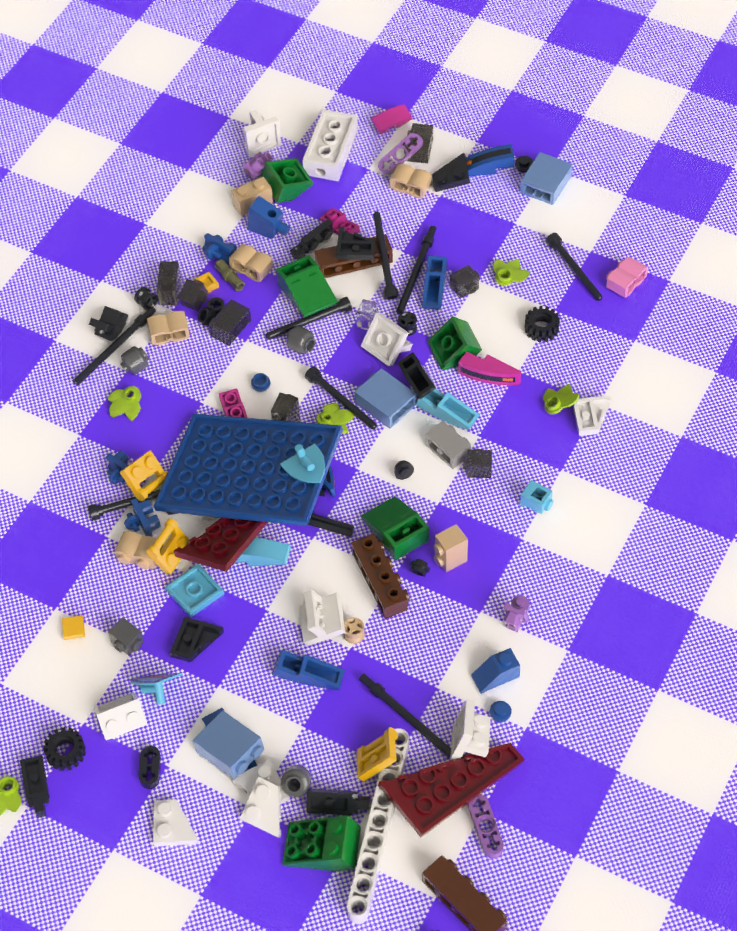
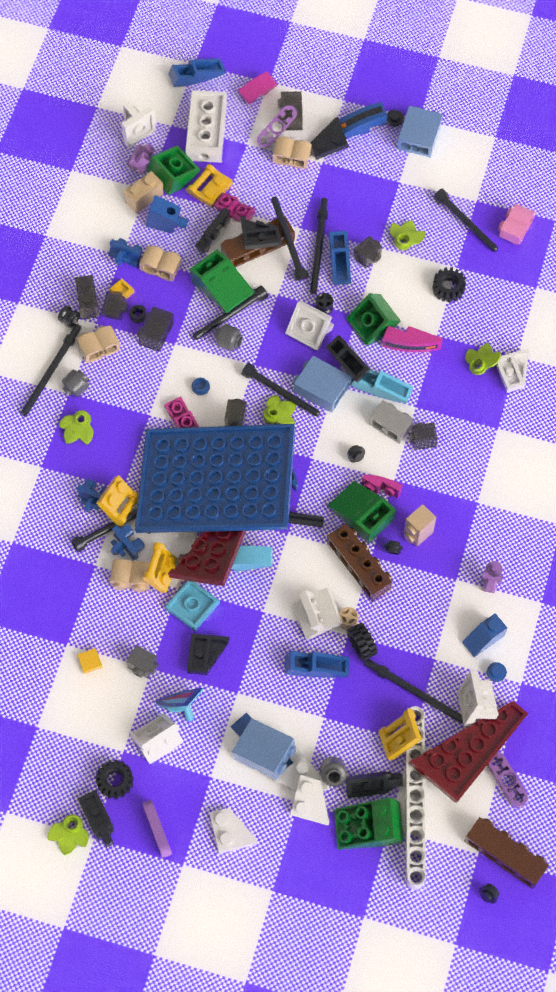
camera: 15 degrees left, 10 degrees up
(94, 807) = (156, 828): none -> medium lavender beam
(110, 323) = (41, 348): black brick -> none
(155, 767) = (201, 781): black beam -> none
(206, 315) = (132, 325): black plate -> none
(229, 275) = (142, 278): olive pin -> none
(306, 465) = (272, 469): medium azure shield -> none
(320, 206) = (213, 190): none -> yellow plate
(334, 97) = (196, 72): none -> blue slope
(360, 653) = (362, 641): none -> black tyre
(366, 313) = (286, 301): clear brick -> none
(422, 502) = (376, 483): none -> dark pink slope
(537, 497) = (481, 457): medium azure brick -> none

